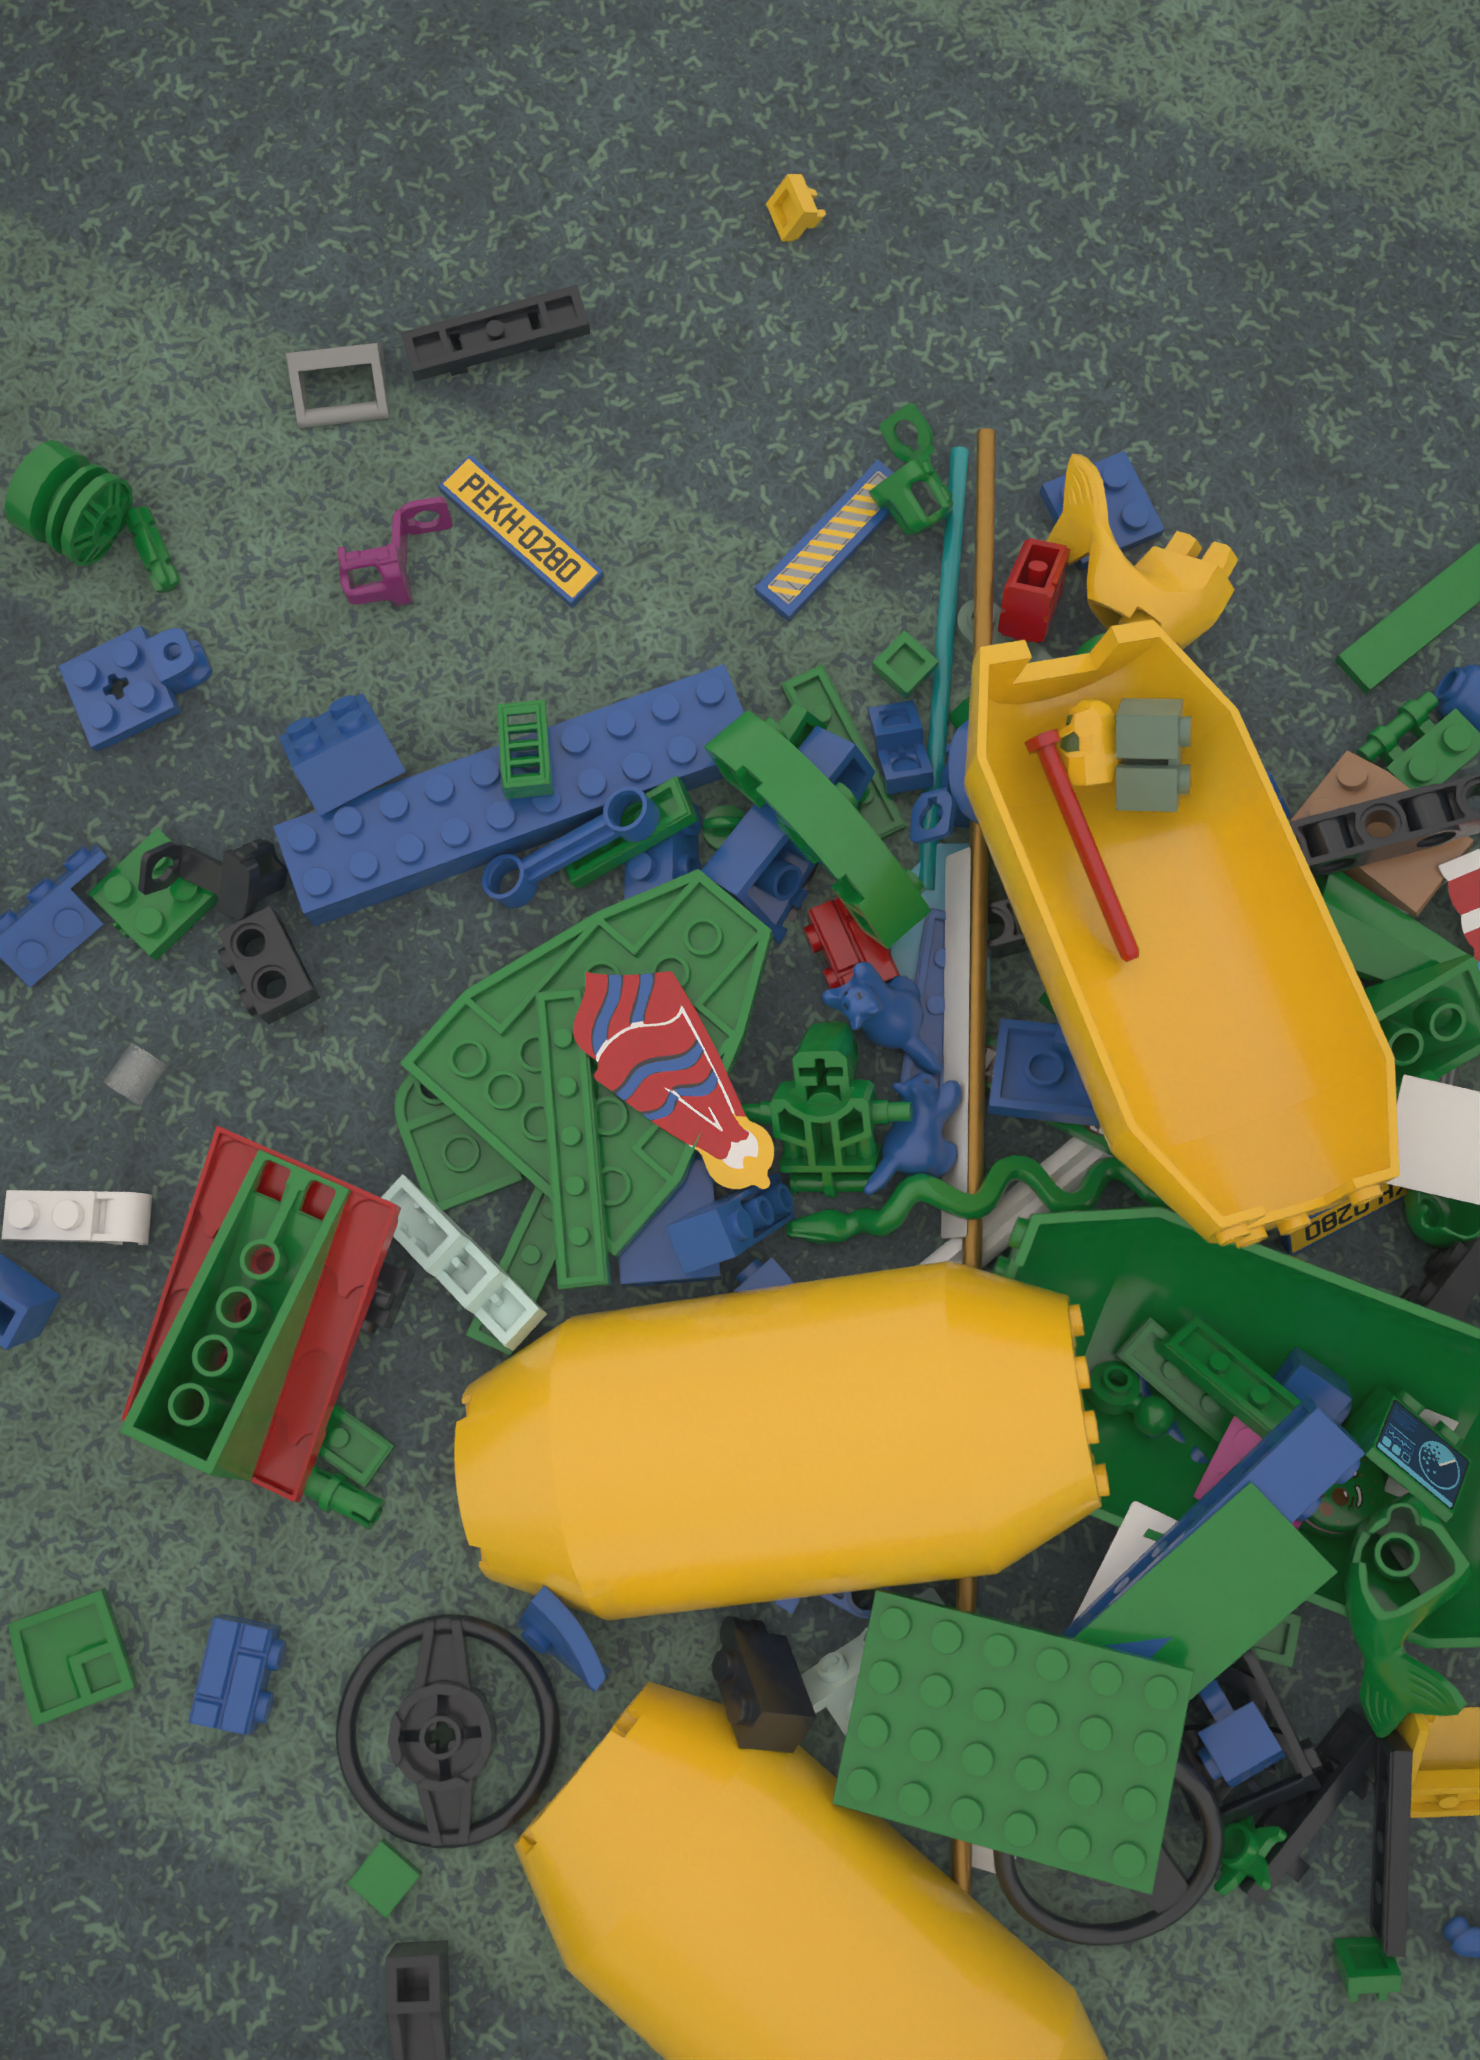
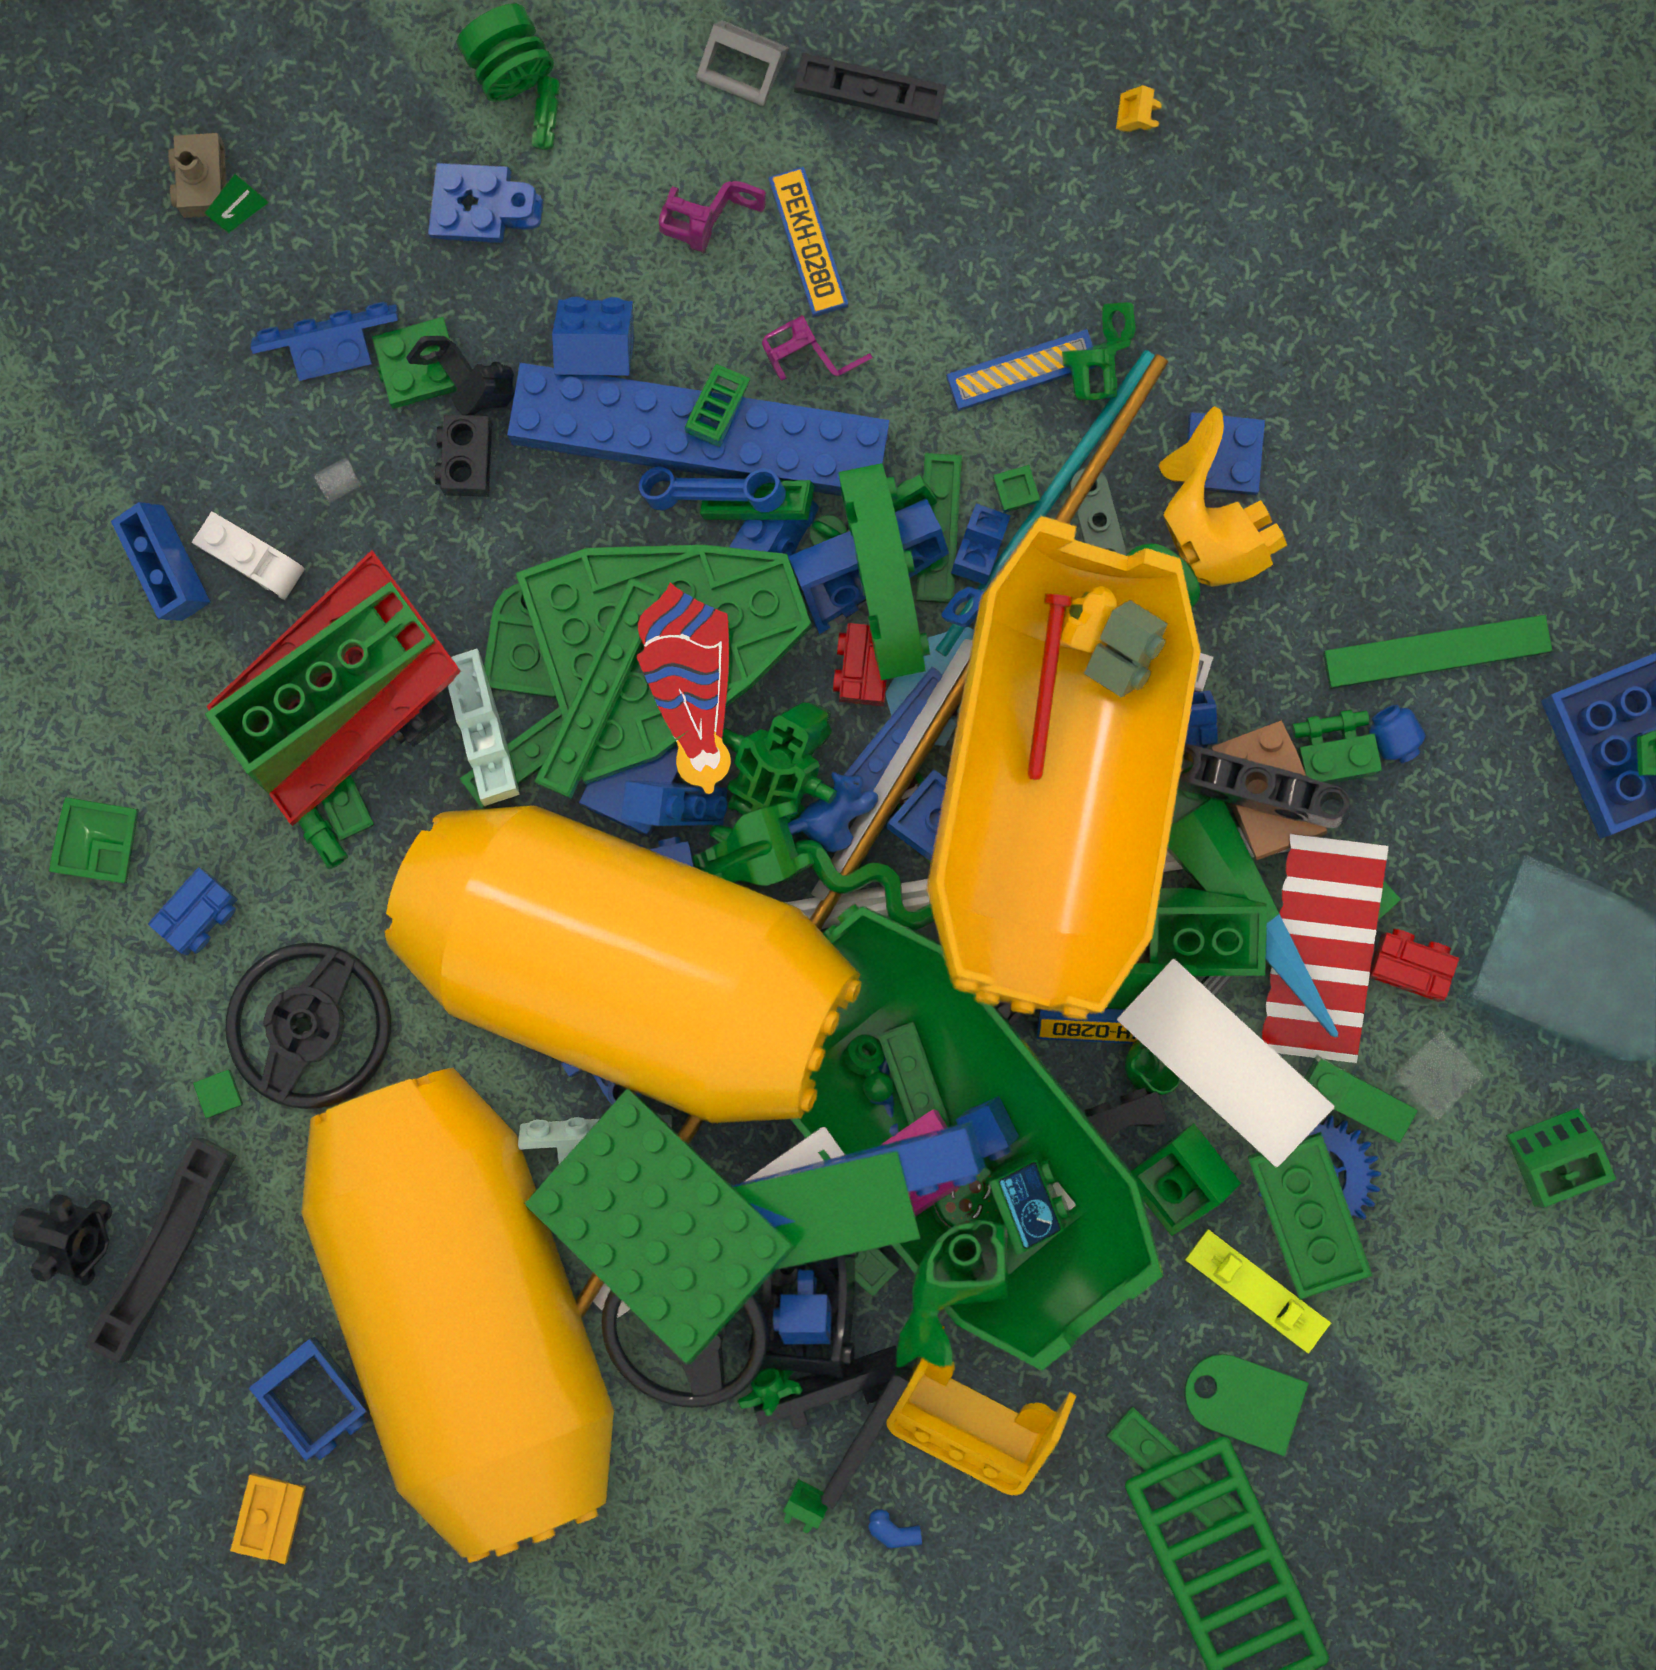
camera: 30 degrees right, 5 degrees up
(553, 1628) = (410, 998): blue plate -> none
(573, 629) = (801, 337): none -> magenta piece
(761, 1687) = (521, 1109): black brick -> none
(859, 1221) = (757, 849): none -> green animal
(885, 1012) = (859, 722): blue animal -> none
(1033, 590) = (1133, 487): red brick -> none
(1229, 1376) = (937, 1083): green tile -> none

